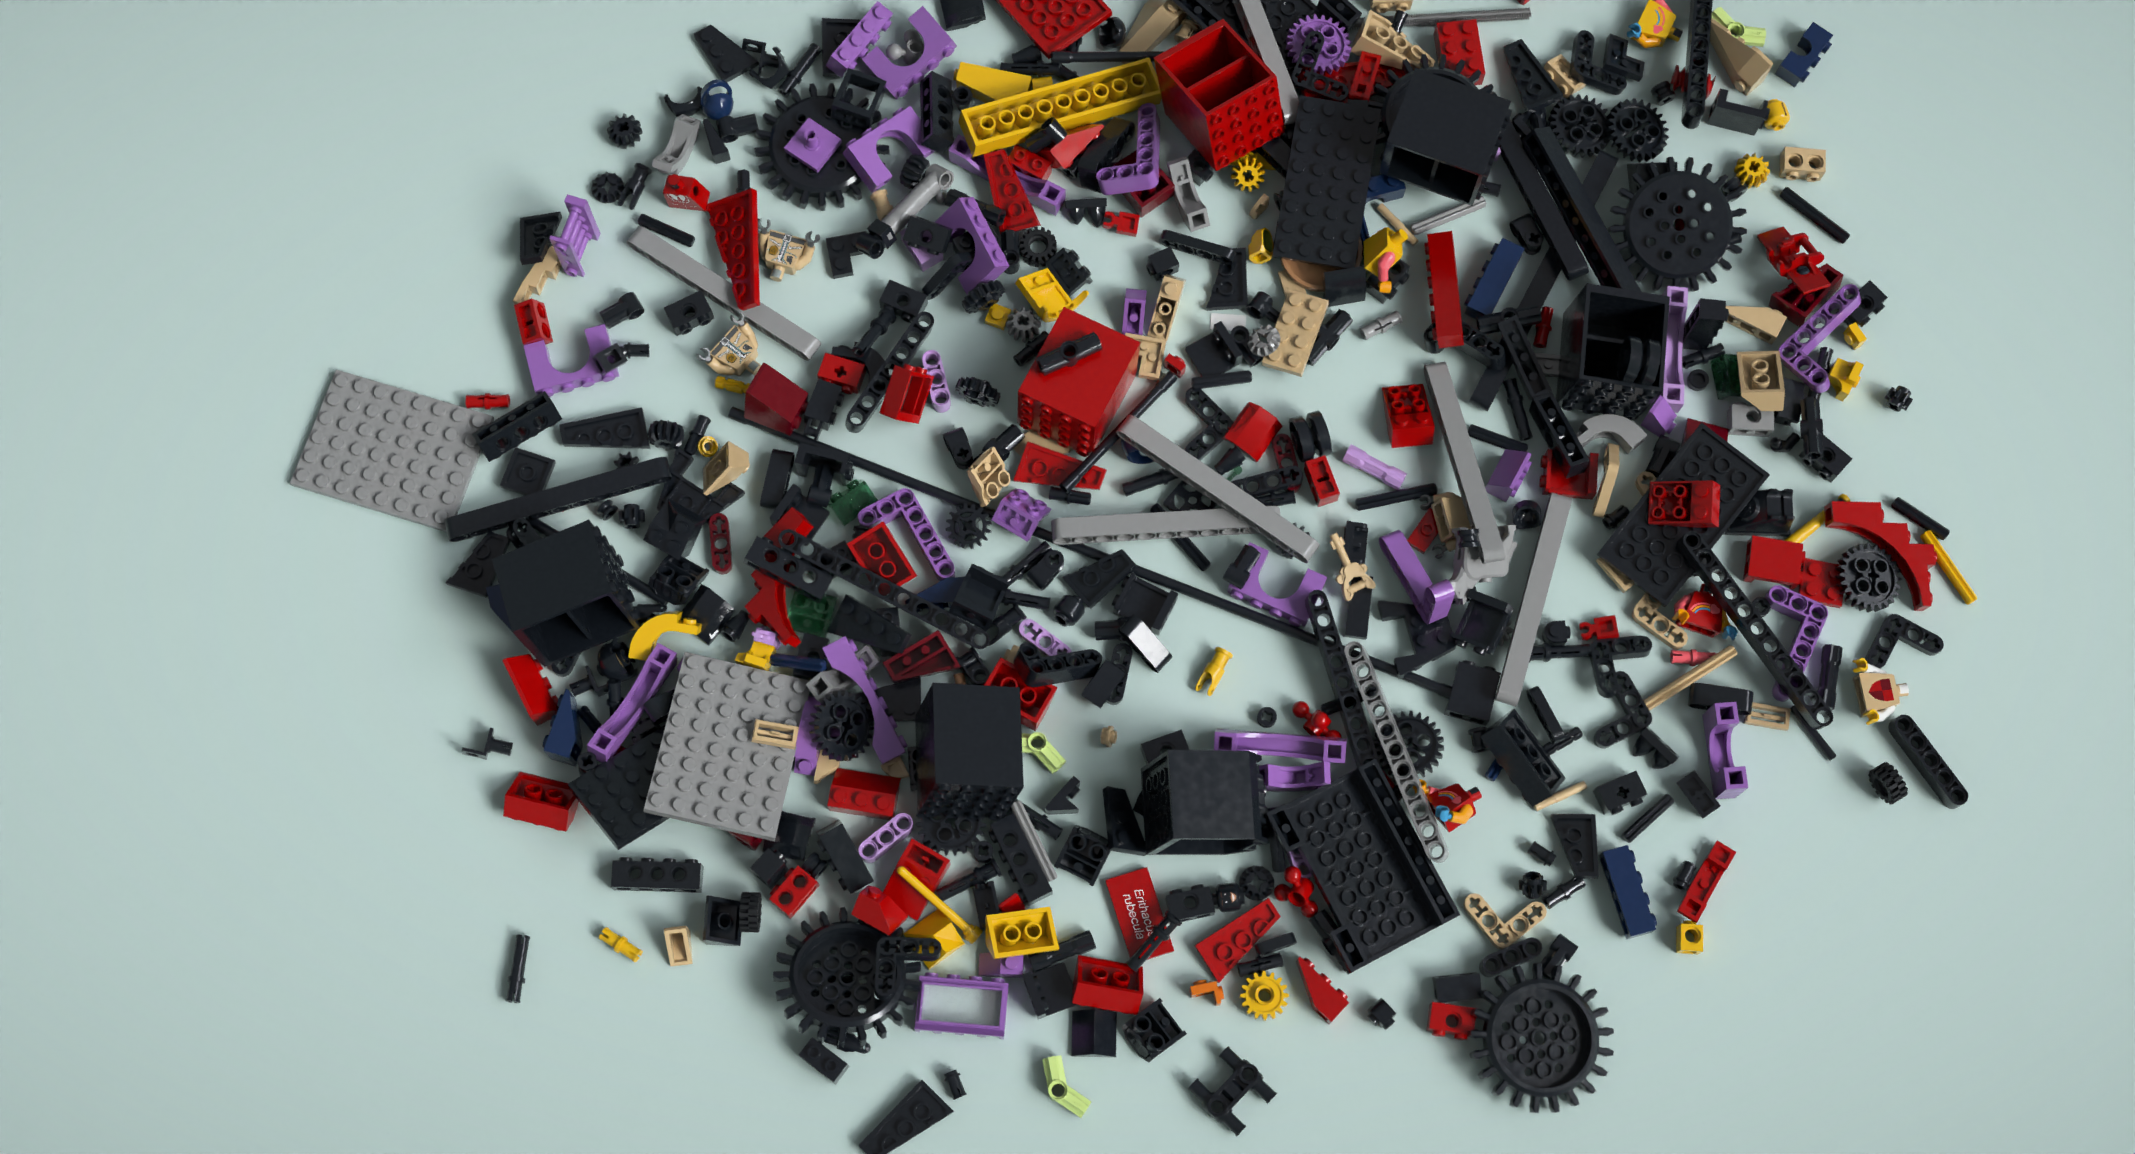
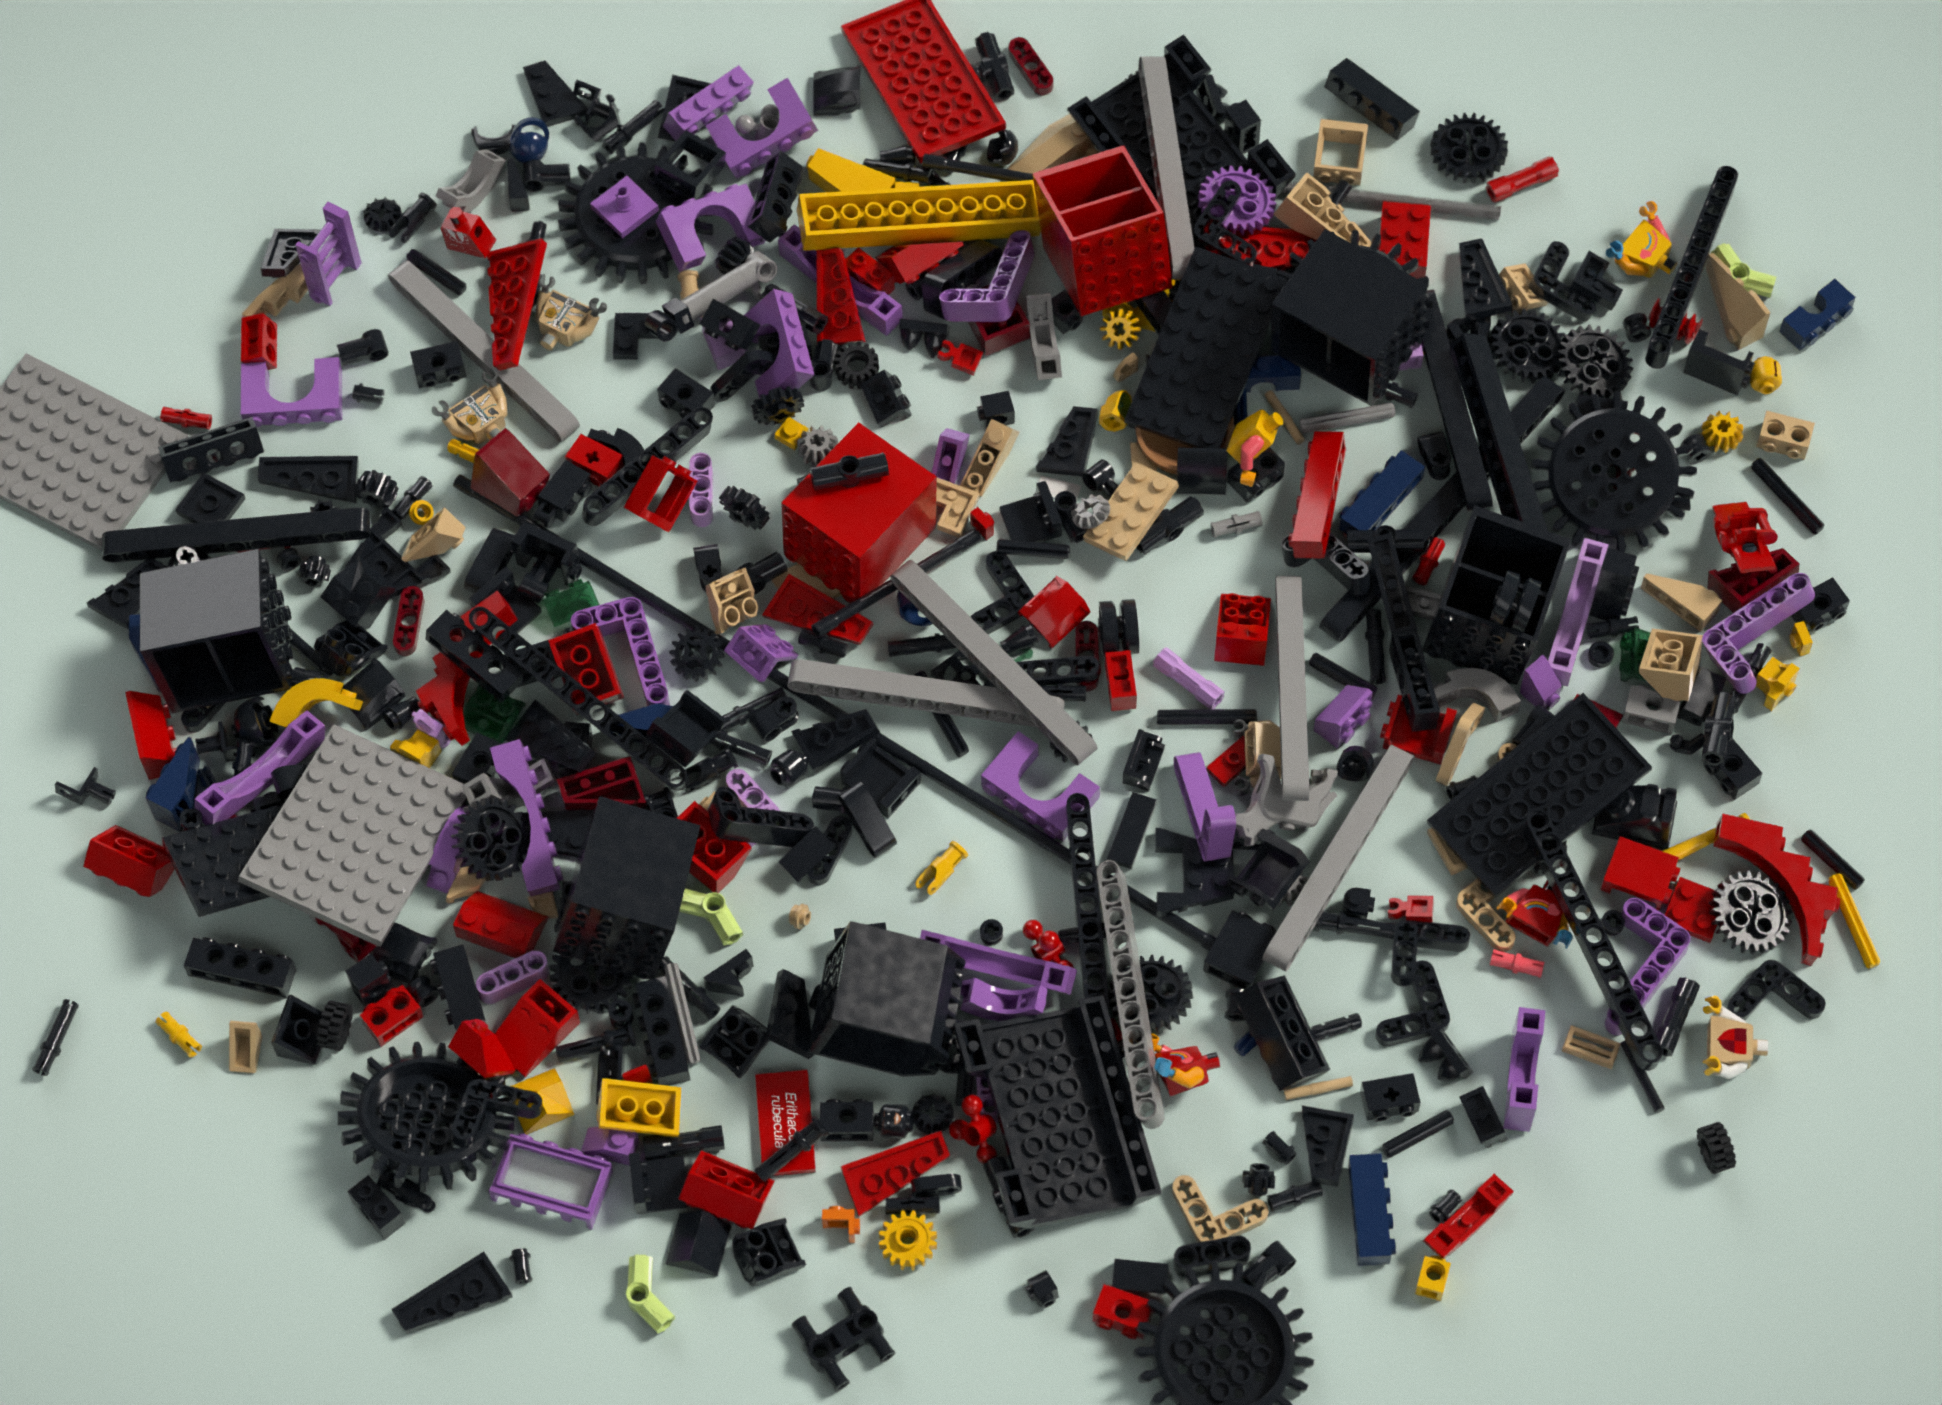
camera: 15 degrees right, 10 degrees down
(619, 134) = (417, 156): black gear -> none
(619, 355) = (340, 386): black brick -> none
(791, 744) = (410, 834): tan tile -> none
(798, 662) = (460, 761): dark blue axle -> none
(878, 327) = (648, 417): black pin -> none
(962, 97) = (809, 184): black cone -> none
(971, 932) = (582, 1099): yellow piece -> none
(1047, 294) = (848, 408): yellow piece -> none
(1049, 133) = (894, 238): black piece -> none
(1197, 247) = (1041, 397): black beam -> none
(1239, 571) = (996, 759): black piece -> none
(1322, 996) = (979, 1258): red slope -> none
(1349, 570) = (1128, 784): tan piece -> none
(1365, 76) = (1282, 243): red plate -> none
(1468, 538) = (1270, 766): black wheel -> none
(1545, 714) = (1321, 991): black beam -> none
(1684, 503) = (1541, 780): red slope -> none
(1690, 677) = (1506, 983): tan axle -> none
(1705, 695) = (1558, 1018): black beam -> none
(1898, 398) = (1837, 718): black gear -> none
(1938, 767) = (1773, 1147): black beam -> none

